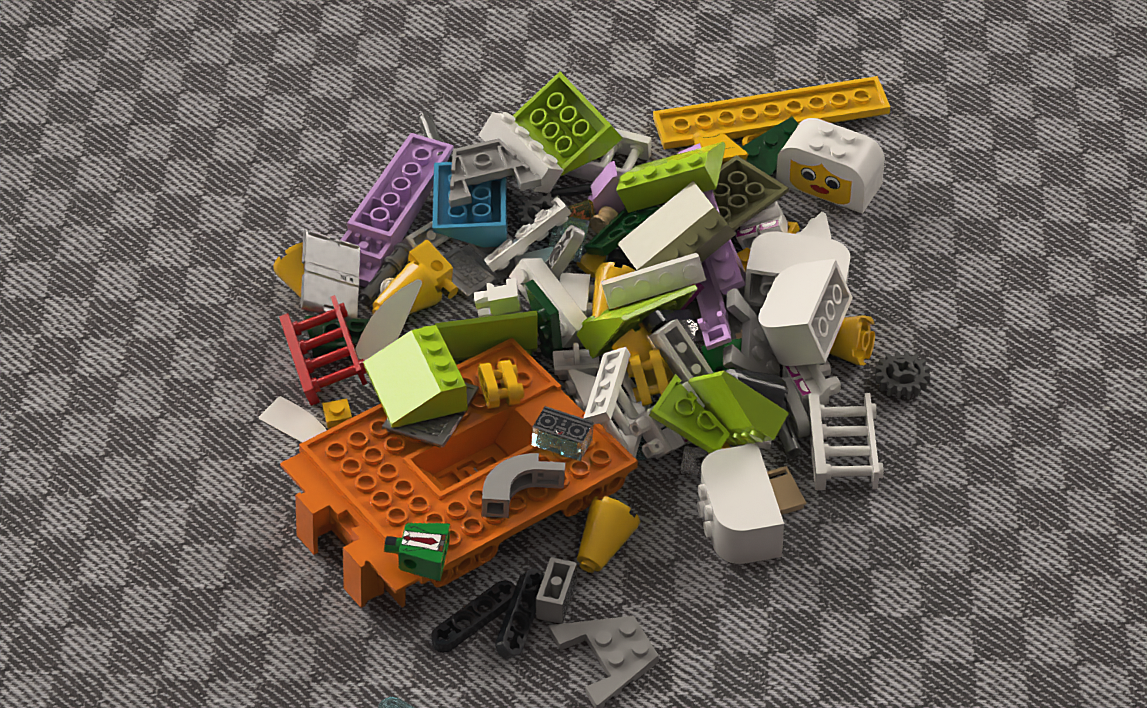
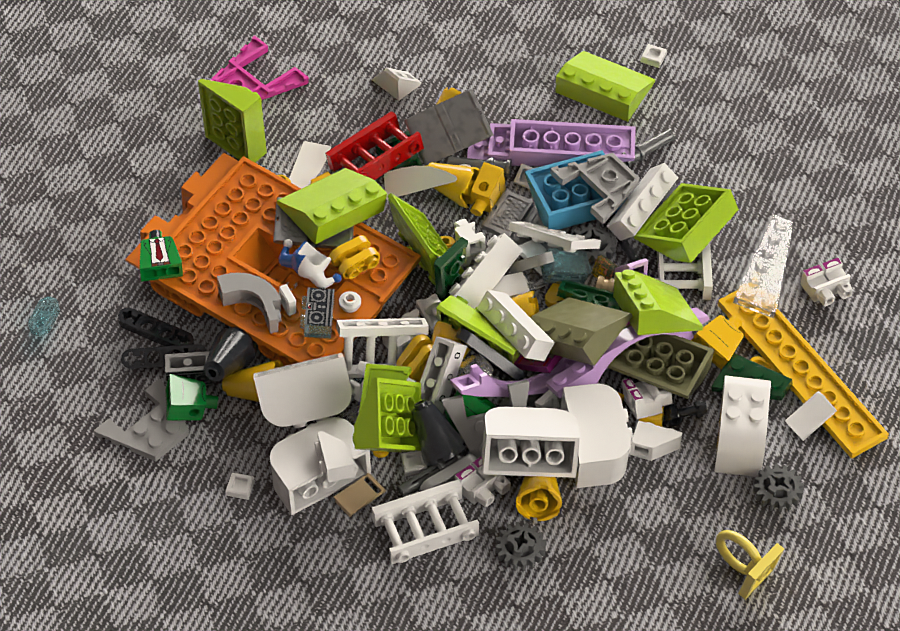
camera: 70 degrees right, 5 degrees up
(140, 453) = (236, 75): none -> dark pink wing
(223, 313) = (397, 82): none -> white slope
(226, 448) = (233, 119): none -> lime slope
(306, 100) = (653, 55): none -> white tile
(328, 147) = (603, 85): none -> lime slope
(490, 424) = (308, 263): none -> white piece
(534, 447) = (287, 300): none -> white tile
(556, 403) = (350, 306): none -> white plate
(567, 538) = (229, 353): none -> black cone
(595, 603) = (187, 399): none -> green torso
(646, 98) = (765, 274): none -> clear wing
(659, 473) = (304, 391): none -> white brick
(679, 63) = (826, 281): none -> white hips
(727, 590) = (240, 486): none -> white tile
(764, 467) = (336, 457): none -> white slope
(788, 200) = (674, 415): none -> black bar
(835, 111) = (810, 415): none -> white slope
(905, 167) = (778, 488): none -> dark grey gear
(1003, 203) = (757, 569): none -> light yellow tile

